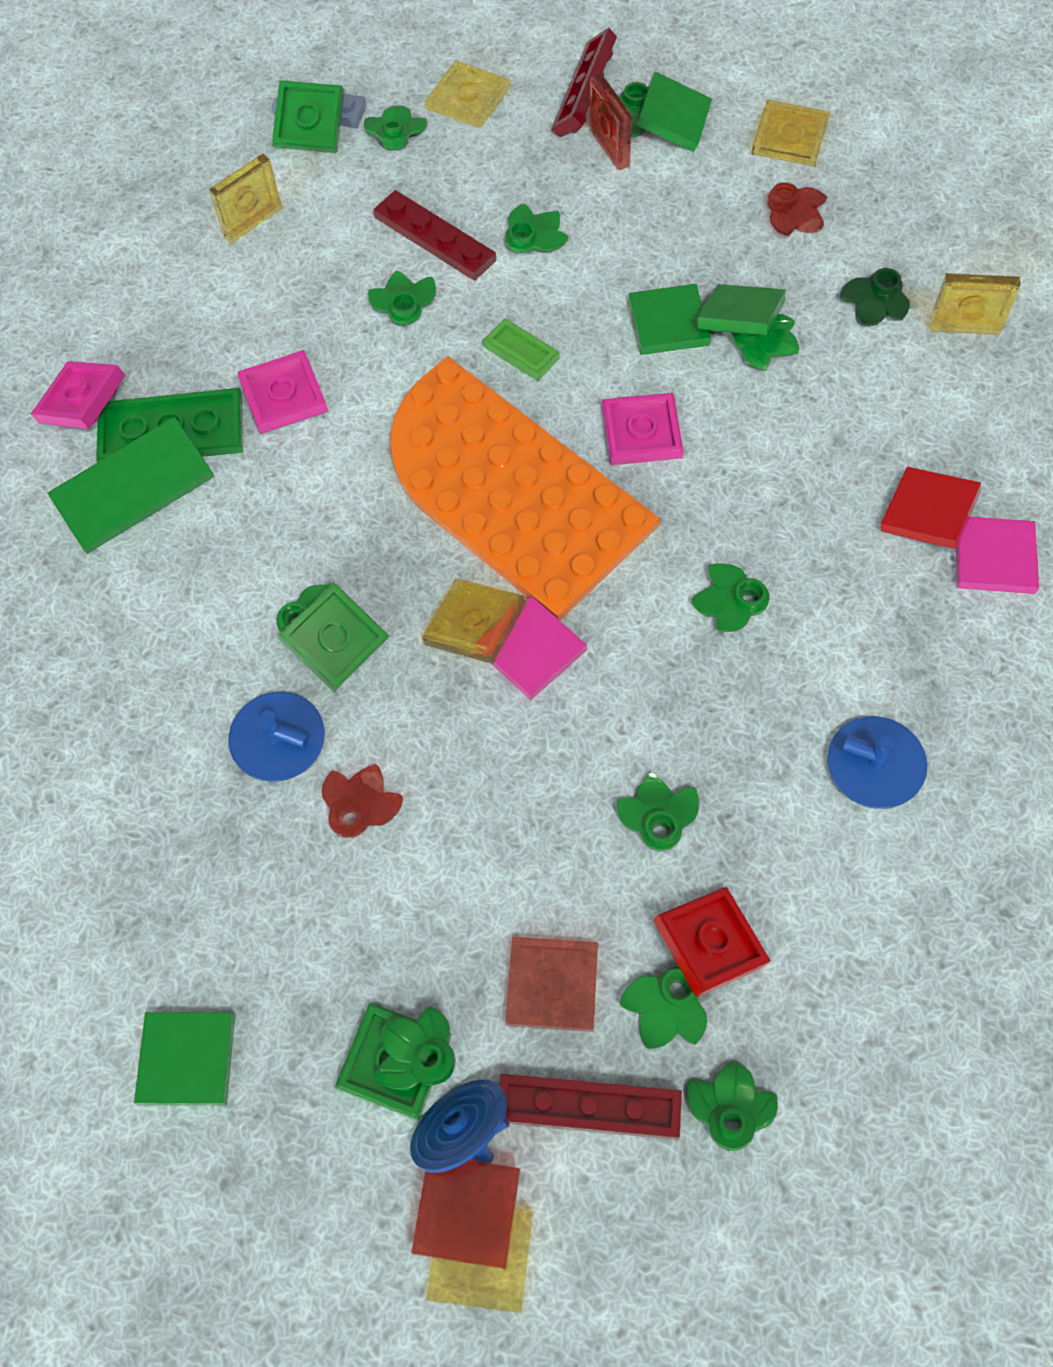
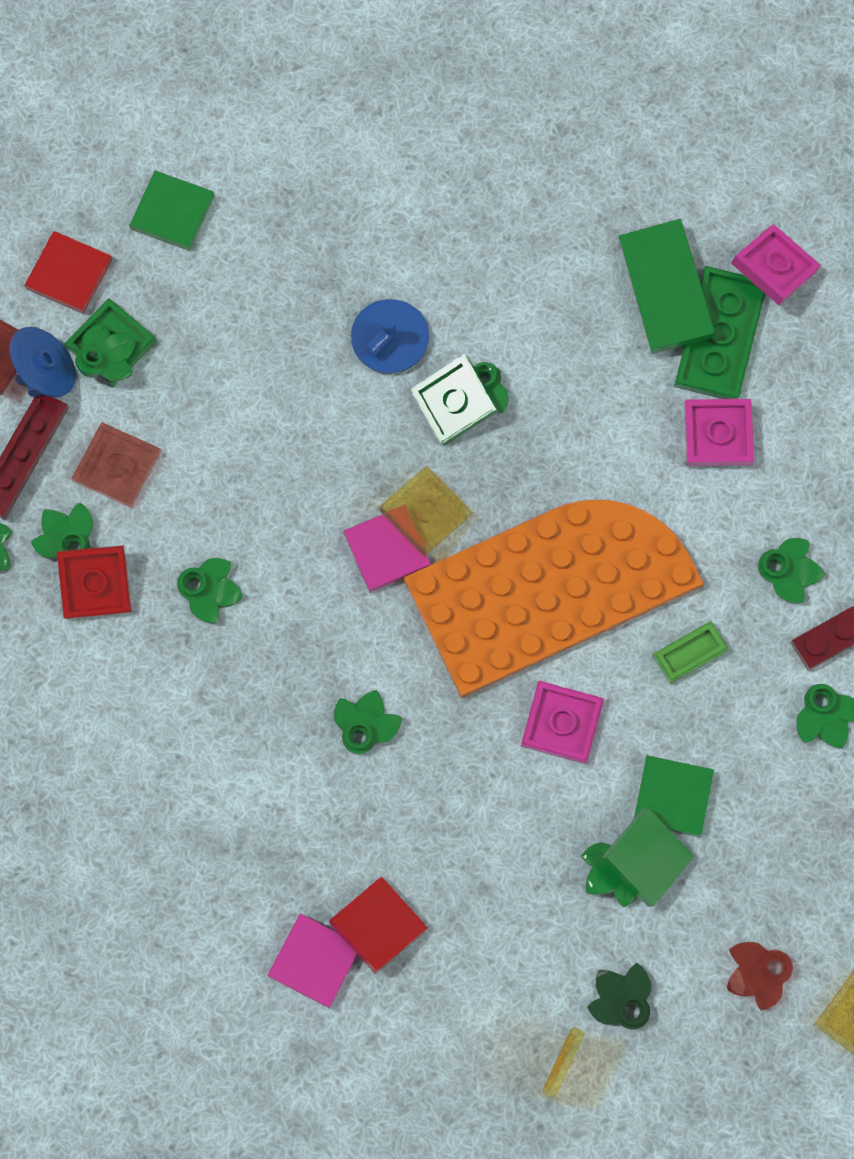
camera: 110 degrees right, 10 degrees up
(313, 1161) = (68, 272): none -> red tile
(362, 796) = (315, 382): clear red plate -> none
(877, 762) = (177, 769): blue shield -> none

